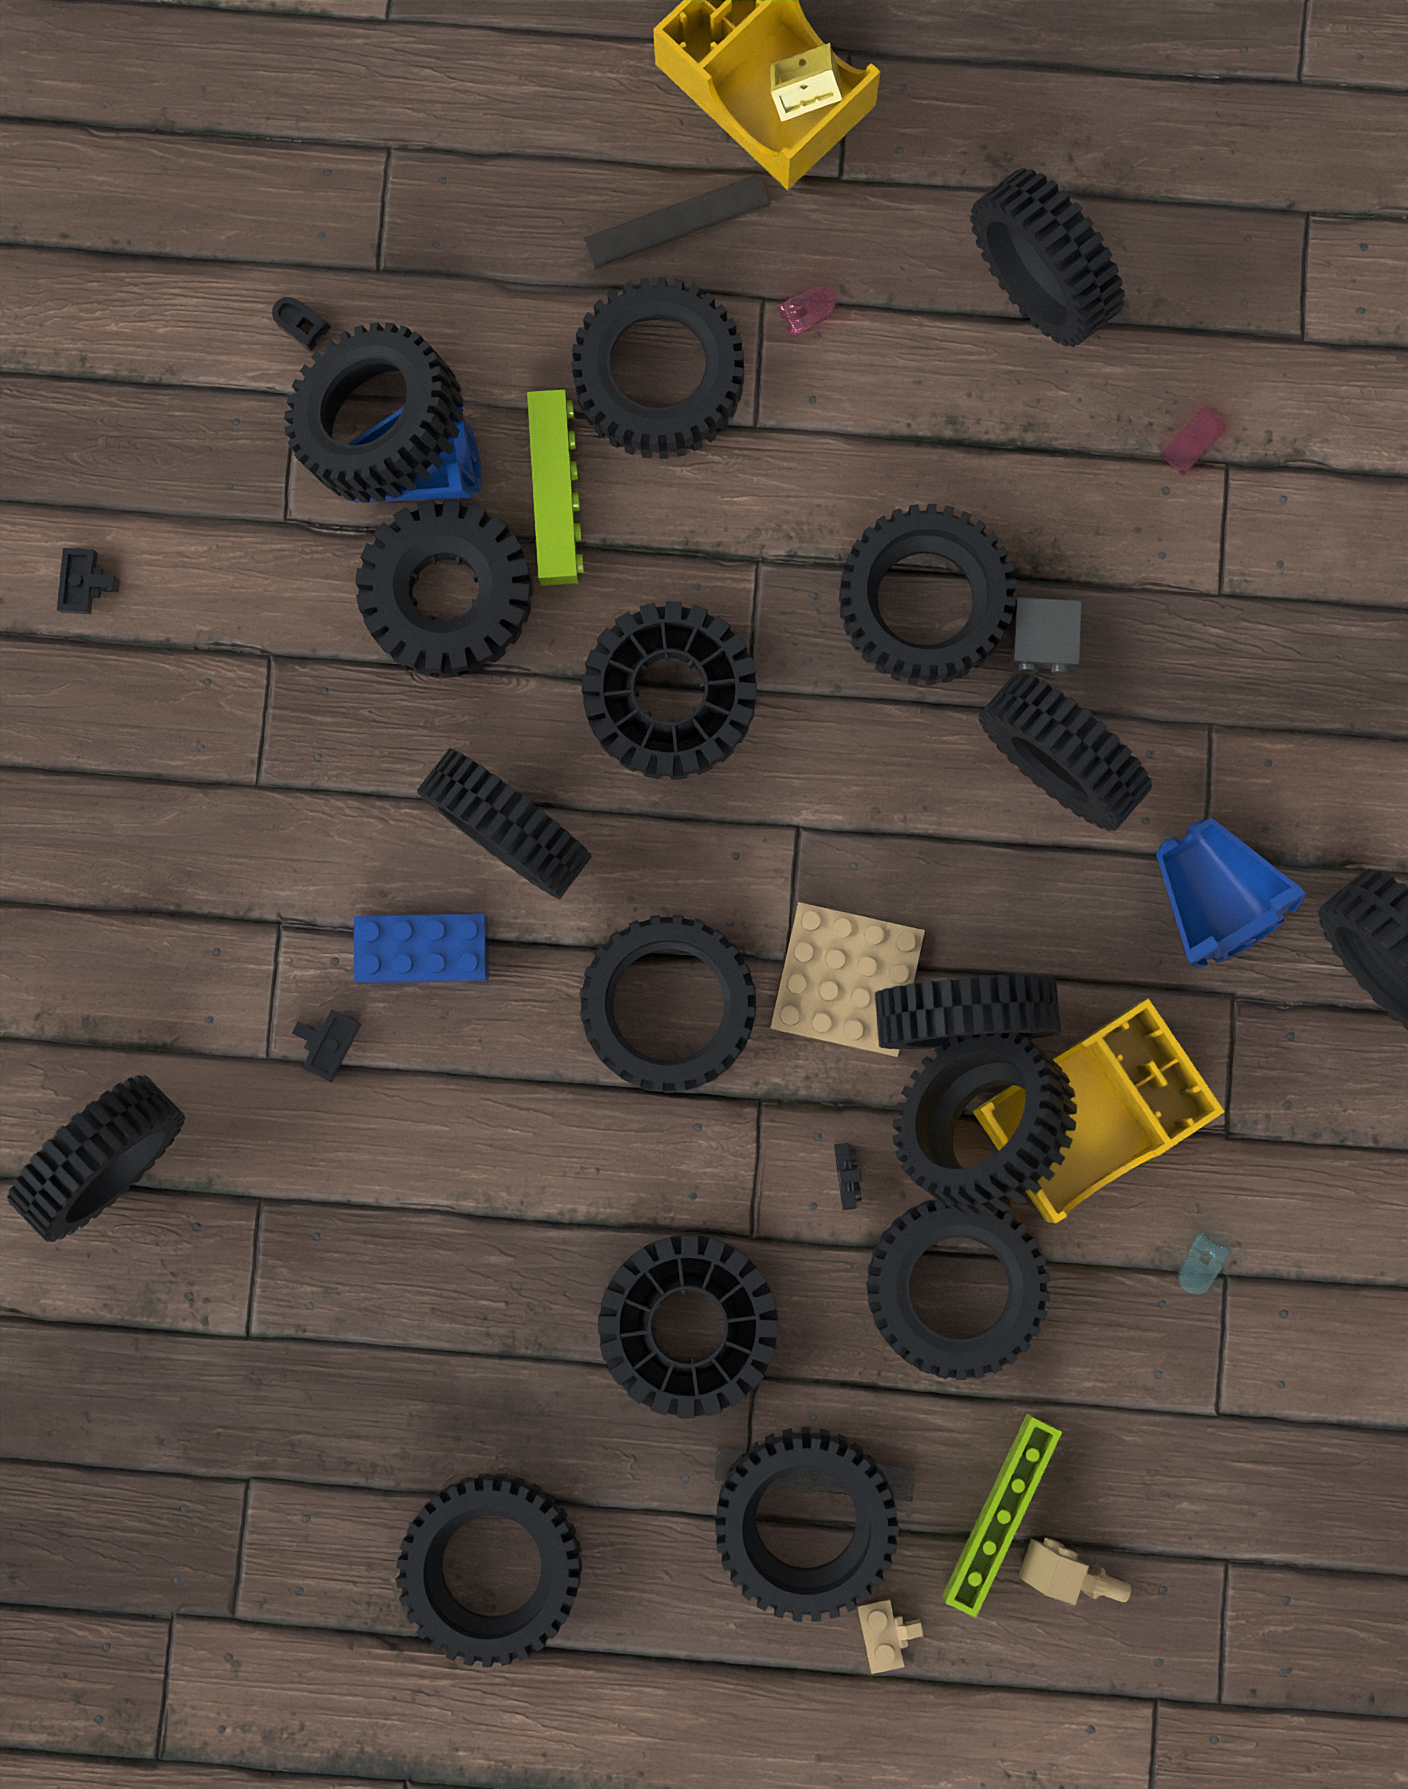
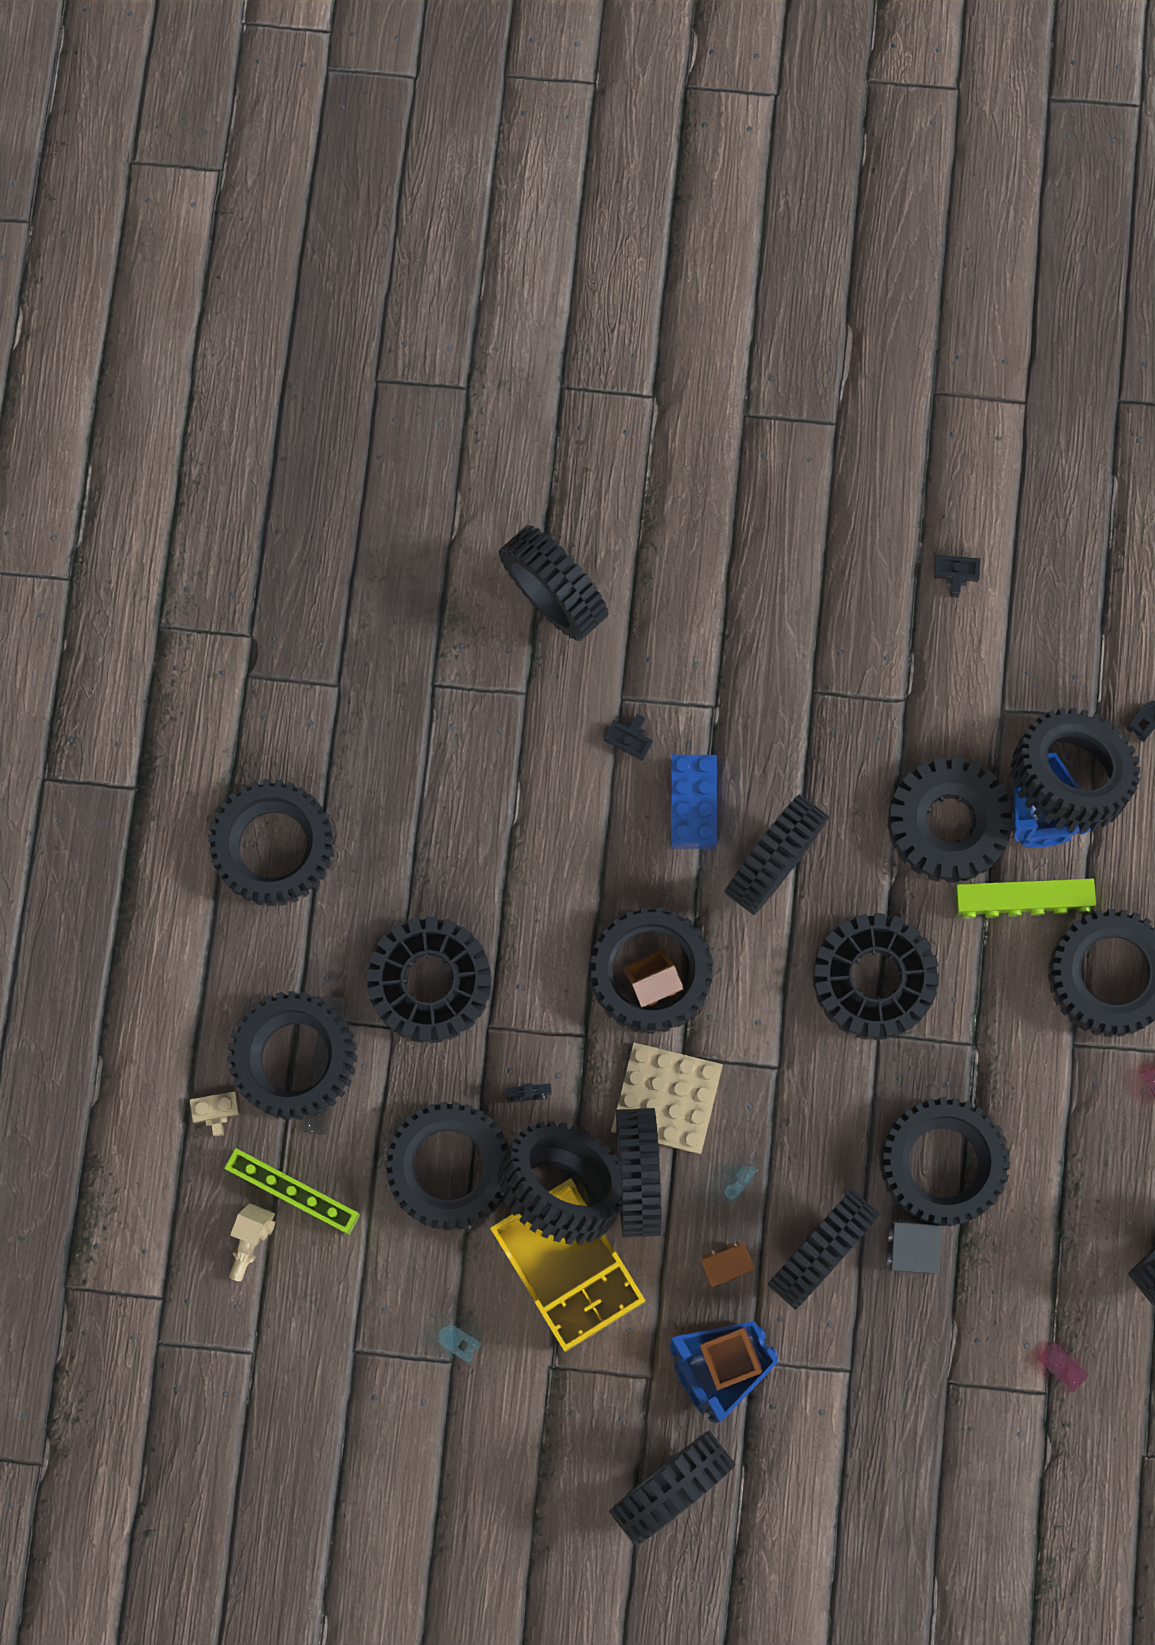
camera: 90 degrees right, 5 degrees down
(681, 1001) = (653, 978): none -> piece
(955, 868) = (744, 1177): none -> clear light blue plate
(1083, 887) = (727, 1264): none -> dark orange brick
(1211, 881) = (731, 1358): none -> dark orange piece

